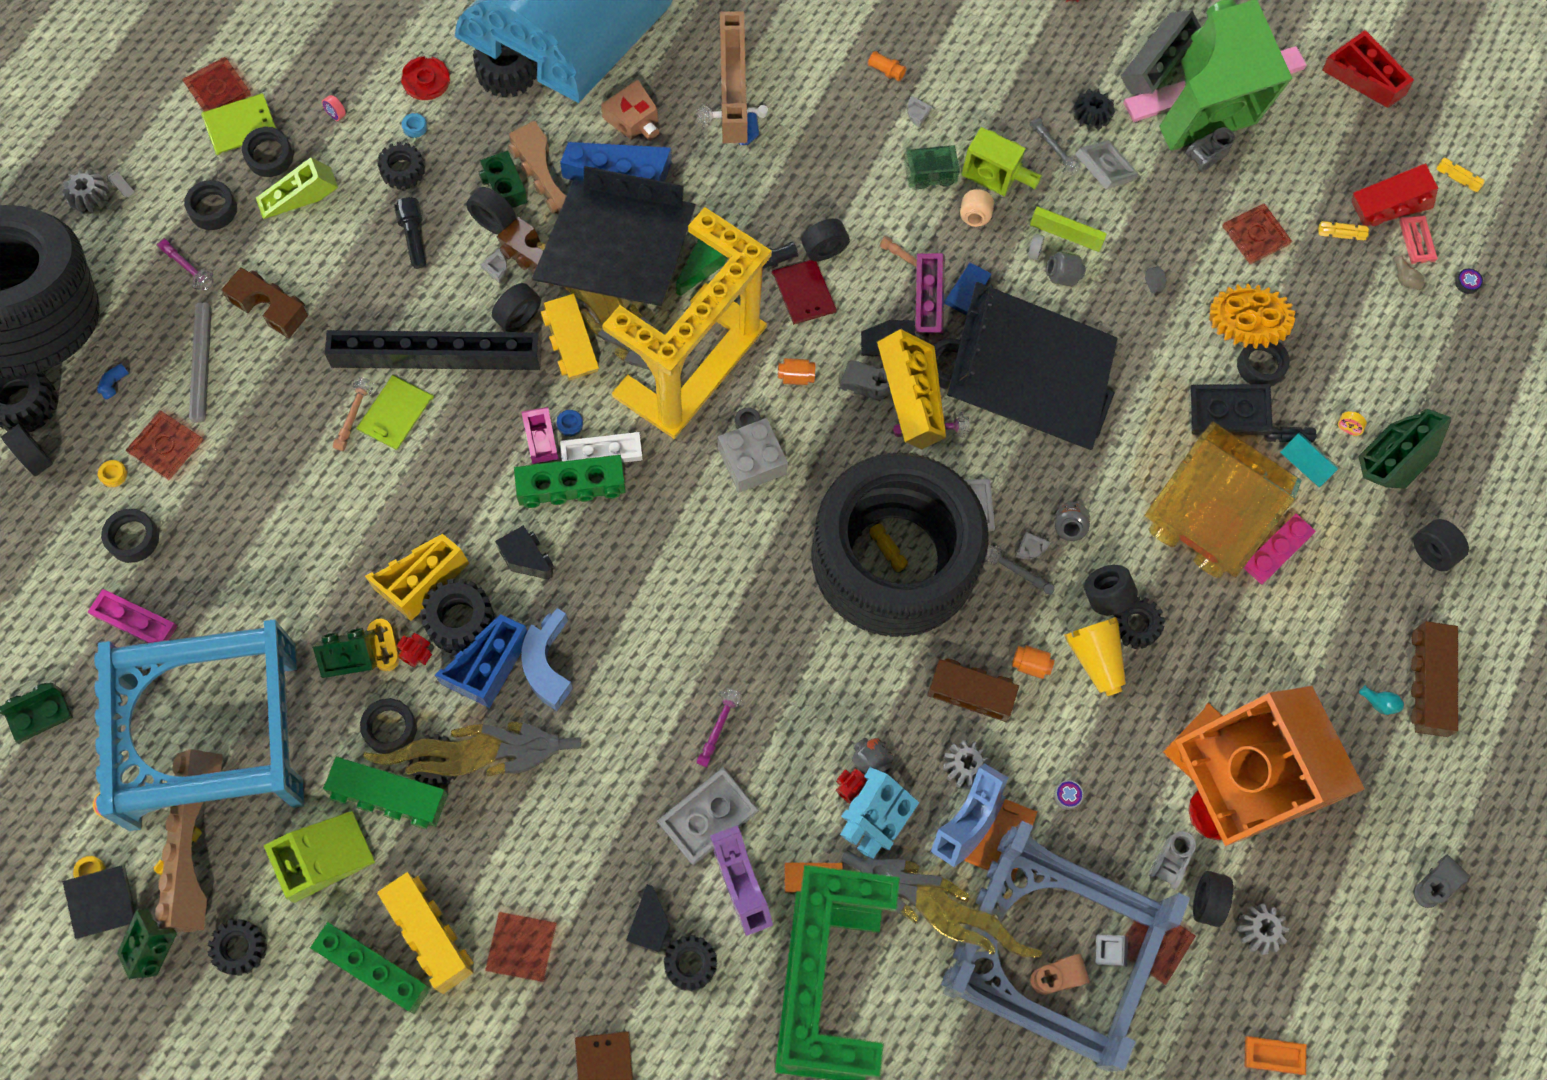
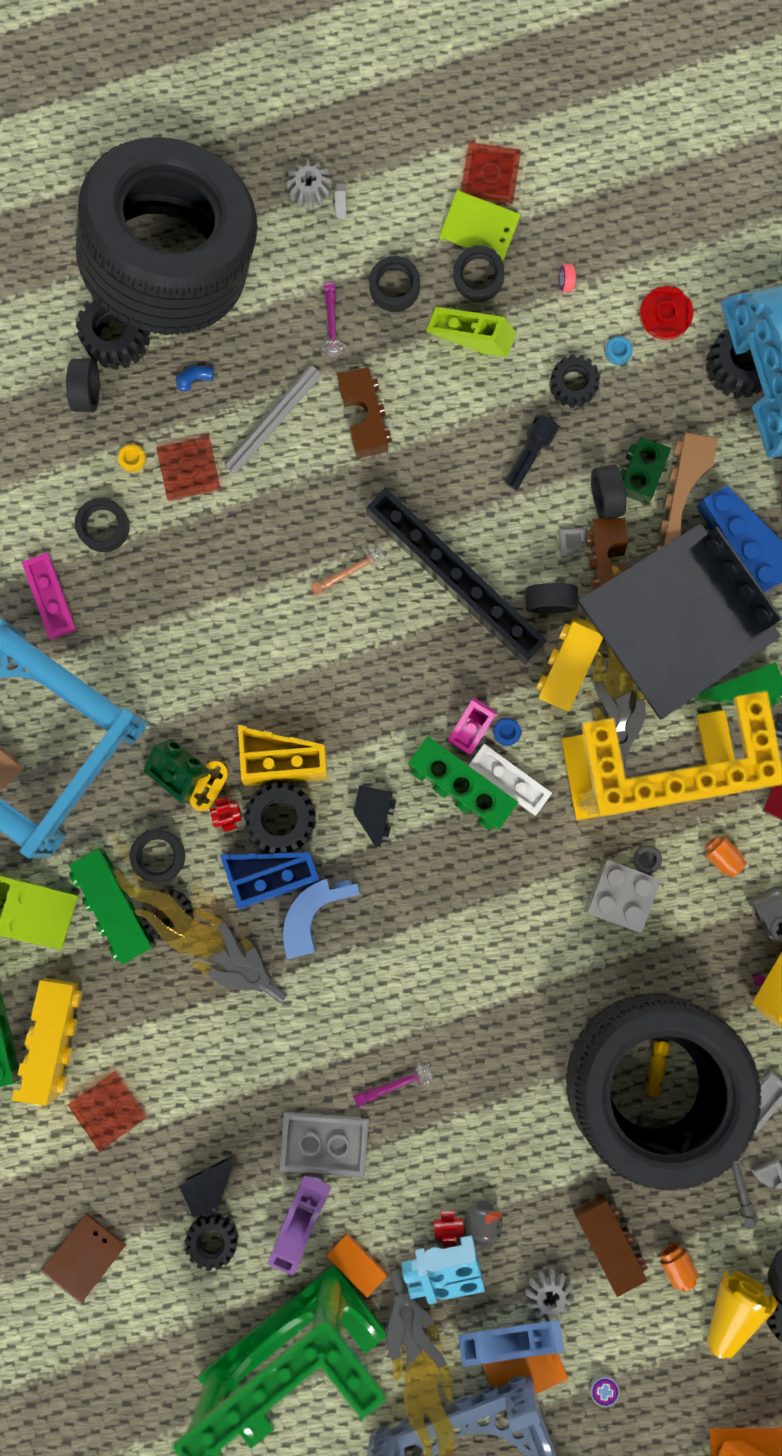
camera: 50 degrees right, 15 degrees up
(394, 412) = (382, 598): lime container -> none

